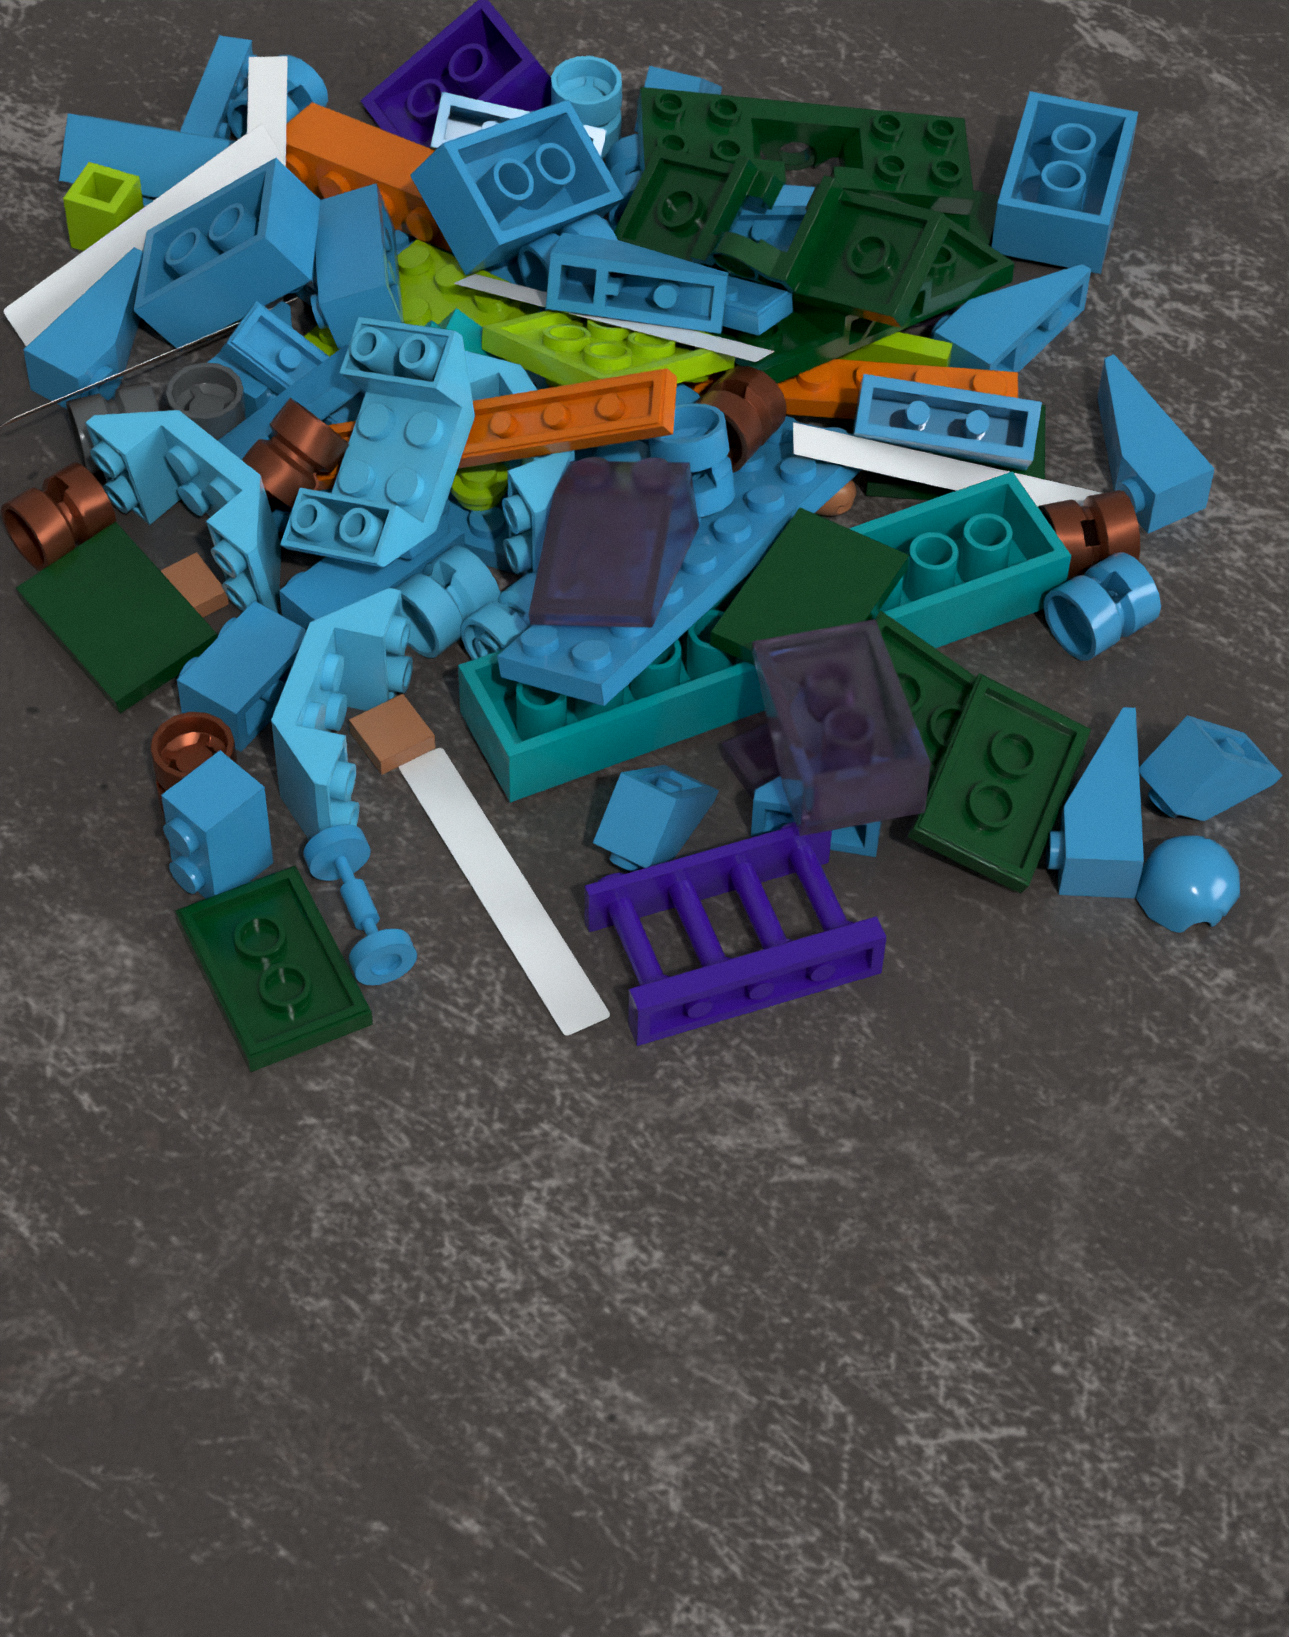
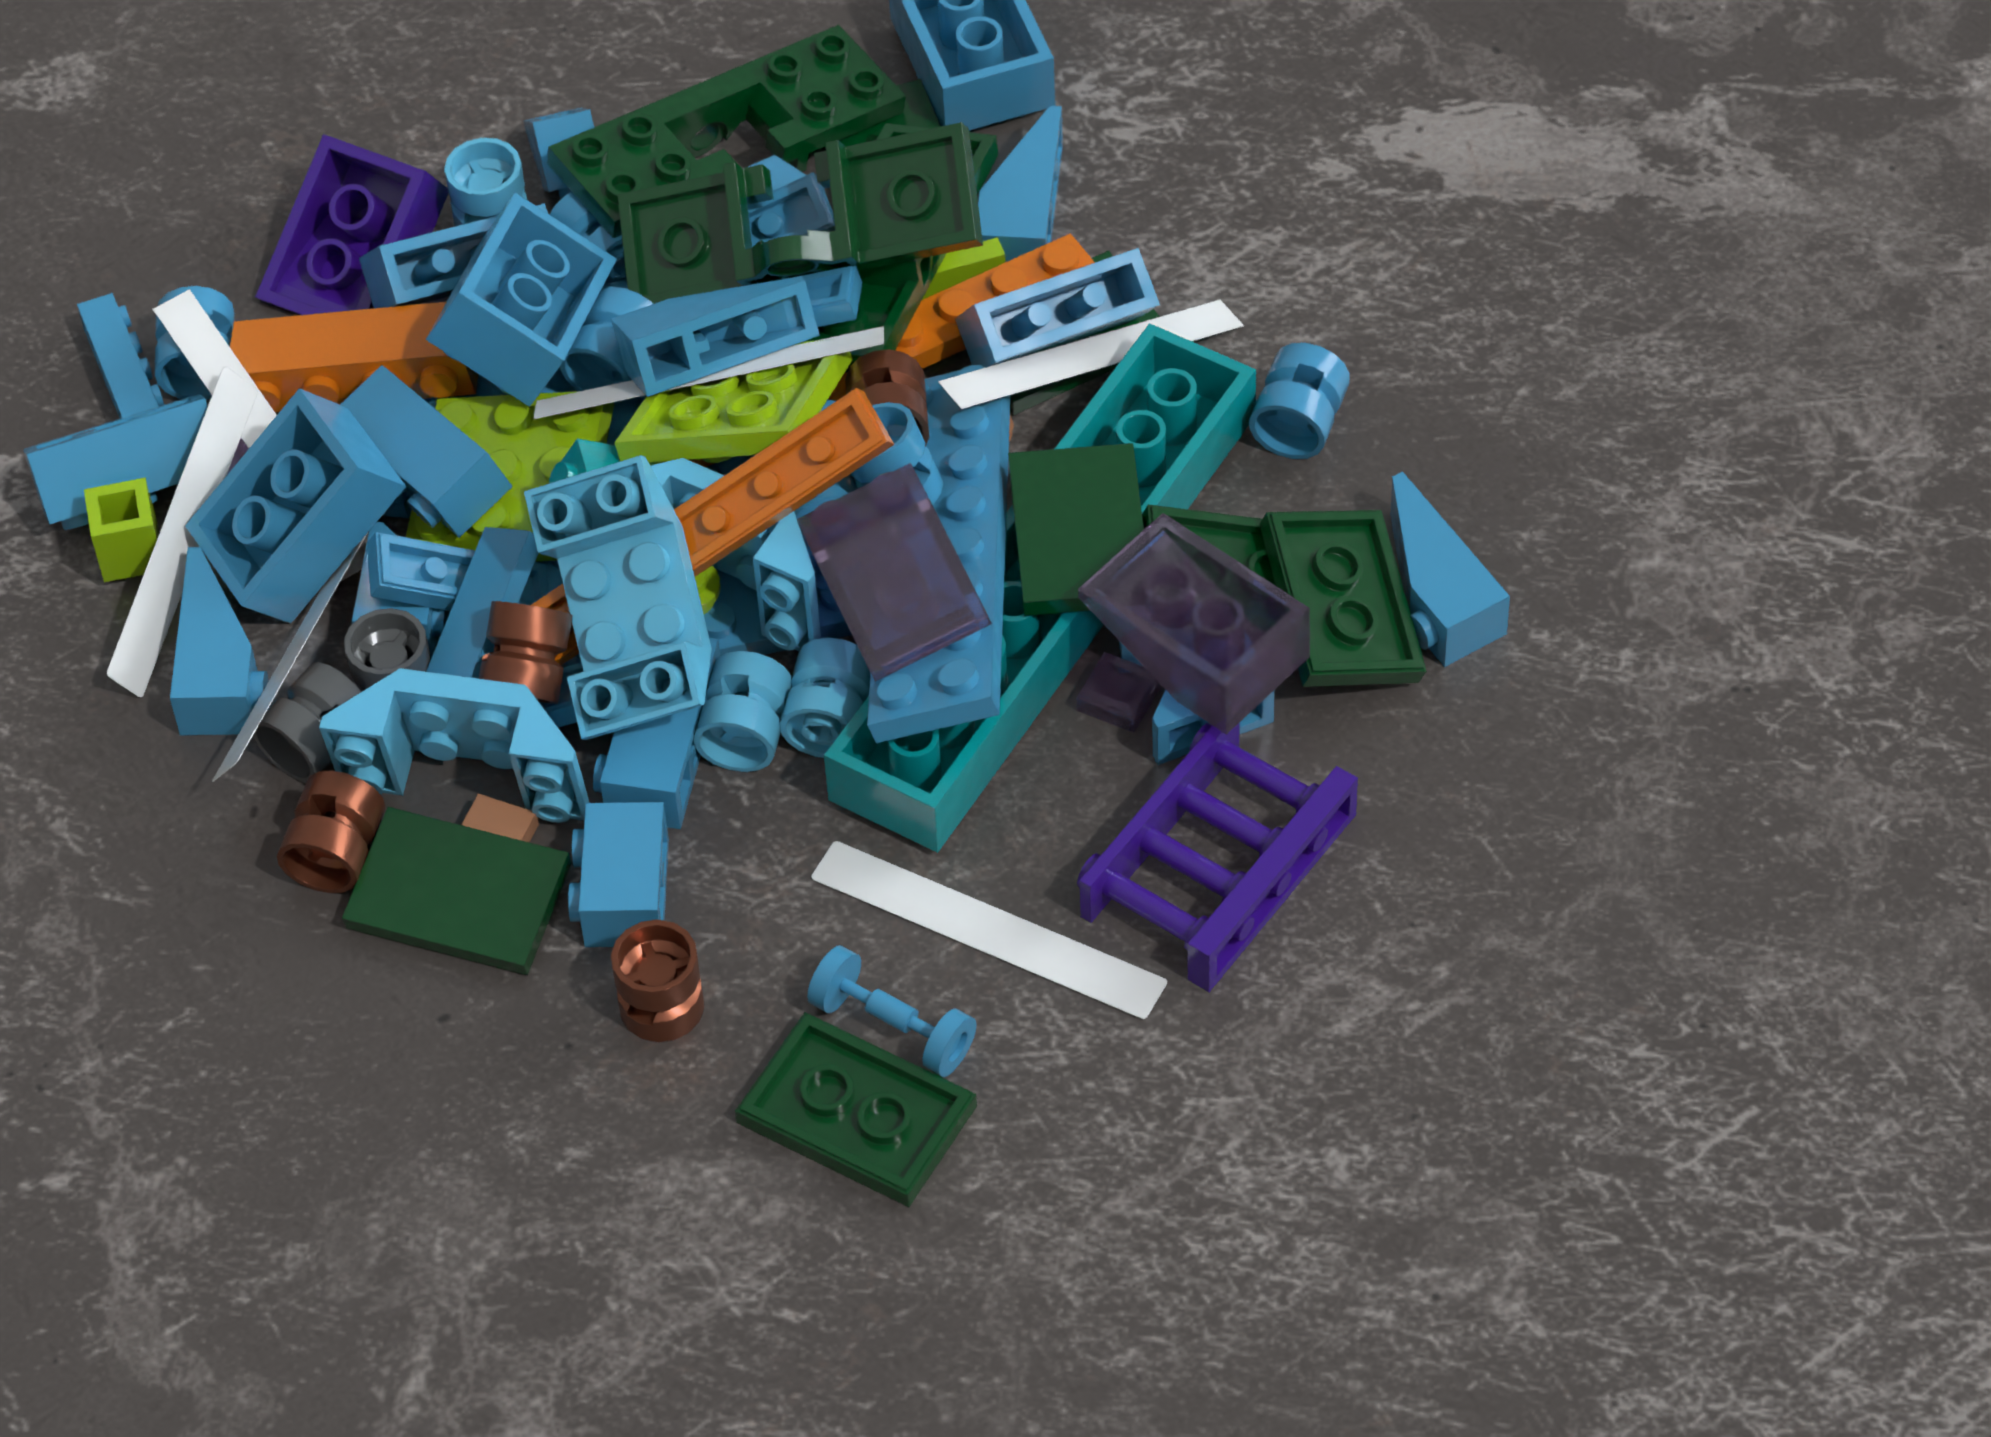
camera: 30 degrees left, 0 degrees up
(217, 827) = (728, 1016): dark azure brick -> none
(343, 662) = (766, 922): medium azure slope -> none
(392, 734) = (787, 853): nougat tile -> none
(652, 816) = (1076, 794): dark azure slope -> none
(1095, 529) = (1248, 331): copper wheel -> none
(1149, 452) = (1227, 247): dark azure slope -> none
(1188, 883) = (1546, 595): dark azure hair -> none
(1205, 770) = (1489, 494): dark azure slope -> none

